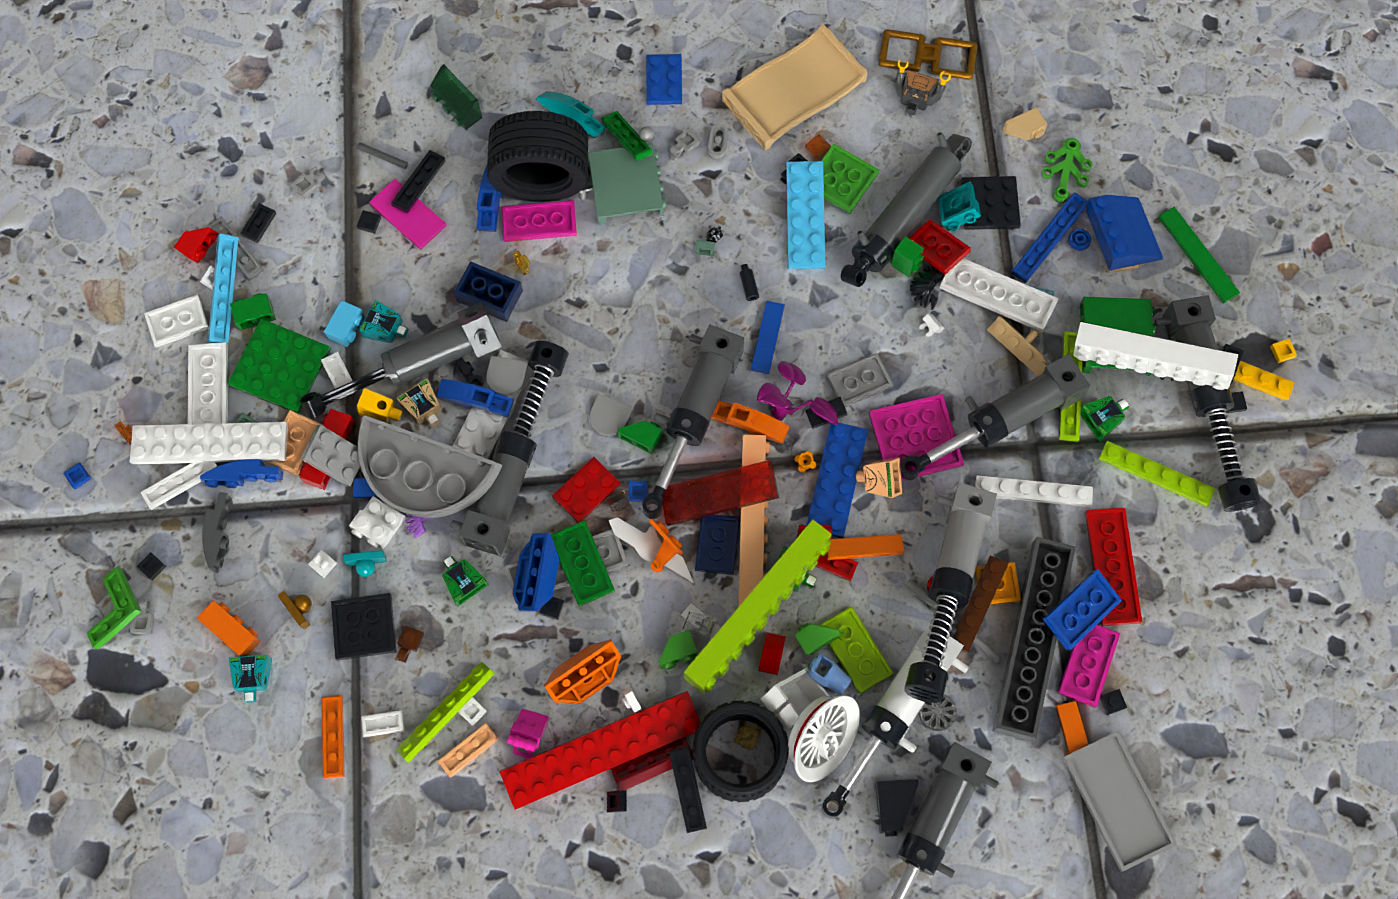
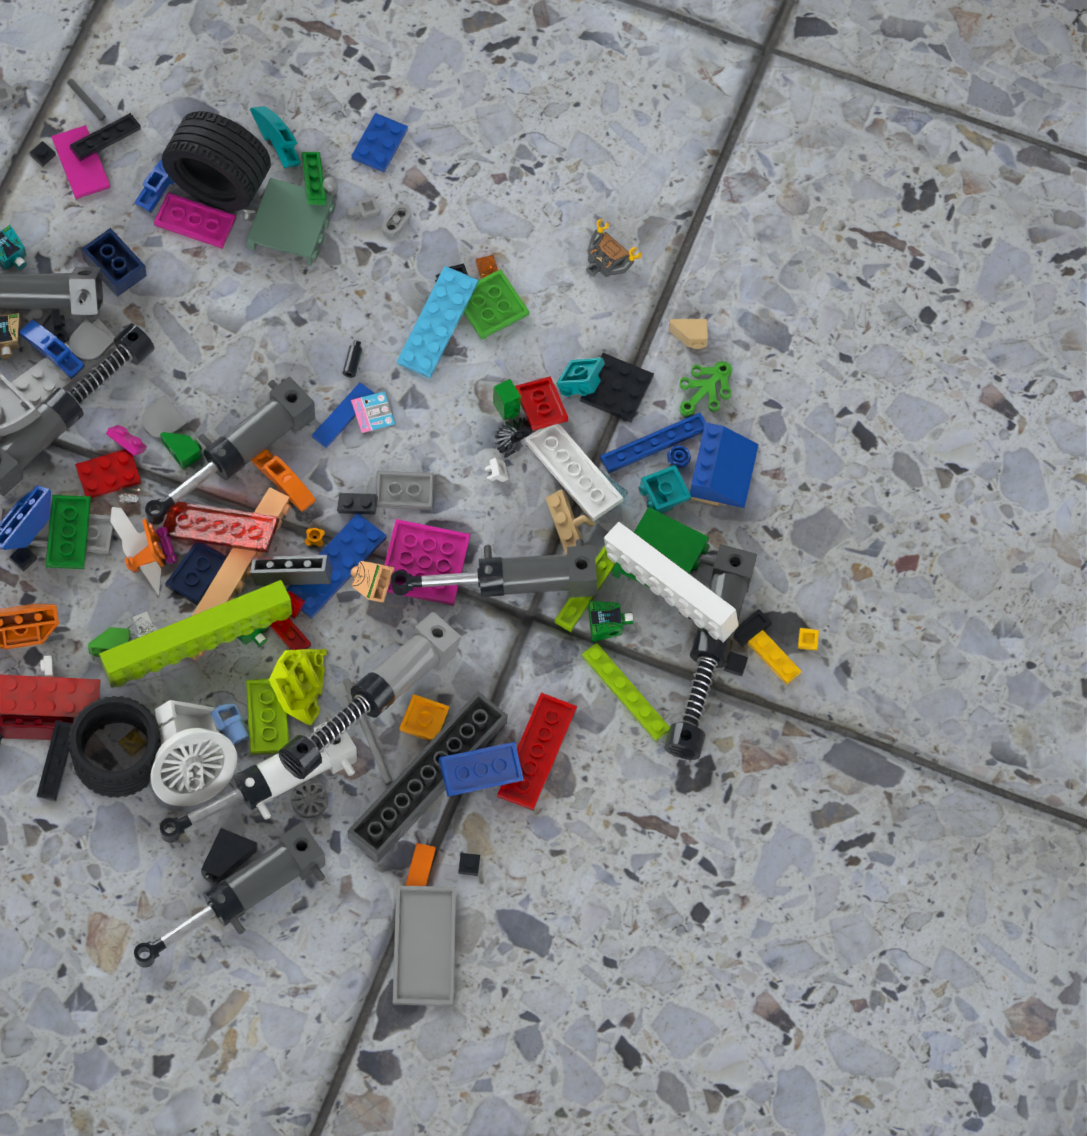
camera: 20 degrees right, 5 degrees down
(455, 98) = (176, 77): clear green slope -> none
(522, 262) = (159, 250): clear yellow plate -> none
(588, 451) = (126, 440): none -> dark pink plate
(638, 491) = (152, 493): blue tile -> none
(678, 533) = (166, 545): none -> magenta axle
(705, 248) = (330, 310): sand green tile -> none
(714, 234) = (345, 302): black plate -> none
(772, 653) = (192, 684): red slope -> none
(782, 406) = (310, 464): magenta plant -> none
(793, 322) = (373, 412): none -> sticker
(794, 86) = (495, 201): tan panel -> none
(807, 503) = (291, 570): none -> dark grey brick
(815, 637) = (236, 688): bright green slope -> none
(865, 547) = (324, 632): orange tile -> none
(870, 607) = (299, 682): none -> neon yellow wedge
(906, 209) = (533, 355): dark grey piece -> none
(928, 53) = (640, 227): pearl gold bar -> none
(980, 602) = (396, 725): reddish brown plate -> none
(1037, 491) = (506, 657): white plate -> none
(1086, 275) = (664, 489): none -> teal plate
(1089, 666) = (466, 823): dark pink tile -> none
(1199, 255) = (783, 520): green tile -> none

